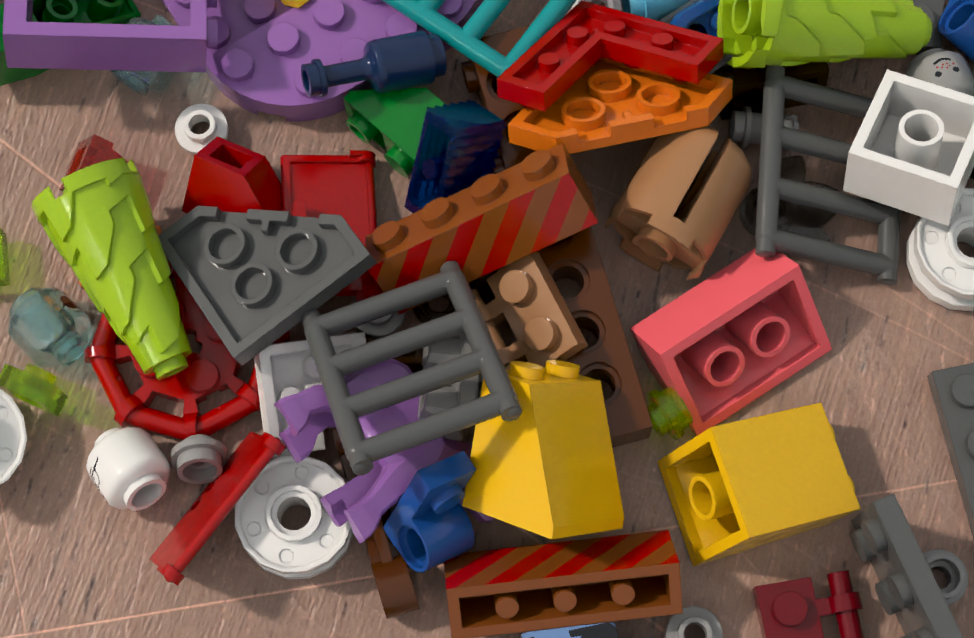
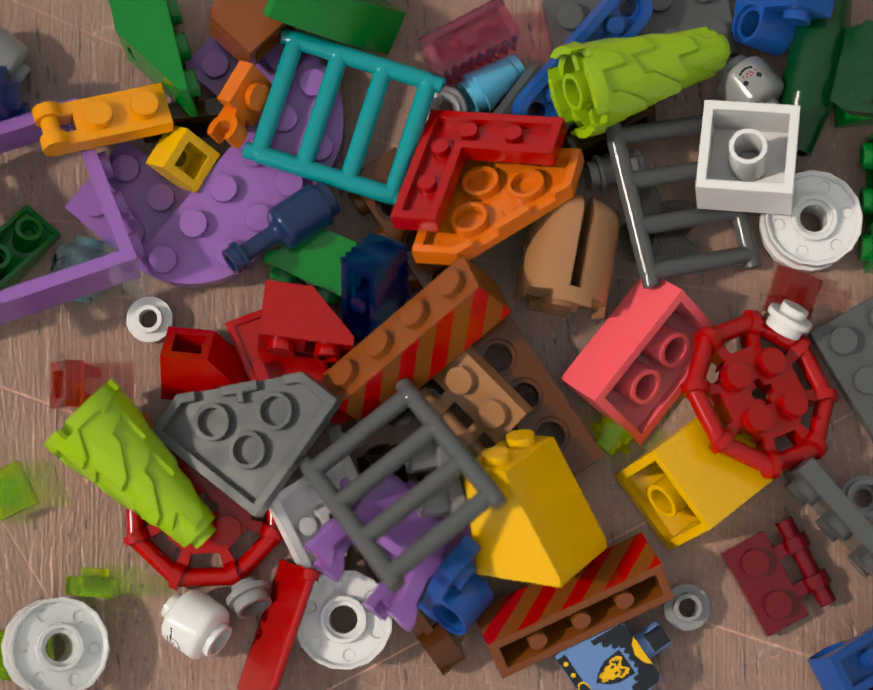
camera: 20 degrees left, 10 degrees up
(48, 327) = (87, 530): clear light blue head -> none
(360, 173) = (301, 322): none -> red slope
(874, 399) = (783, 392): none -> red plate
(911, 343) = (788, 319): none -> white plate
(922, 326) = (794, 287): none -> clear red tile

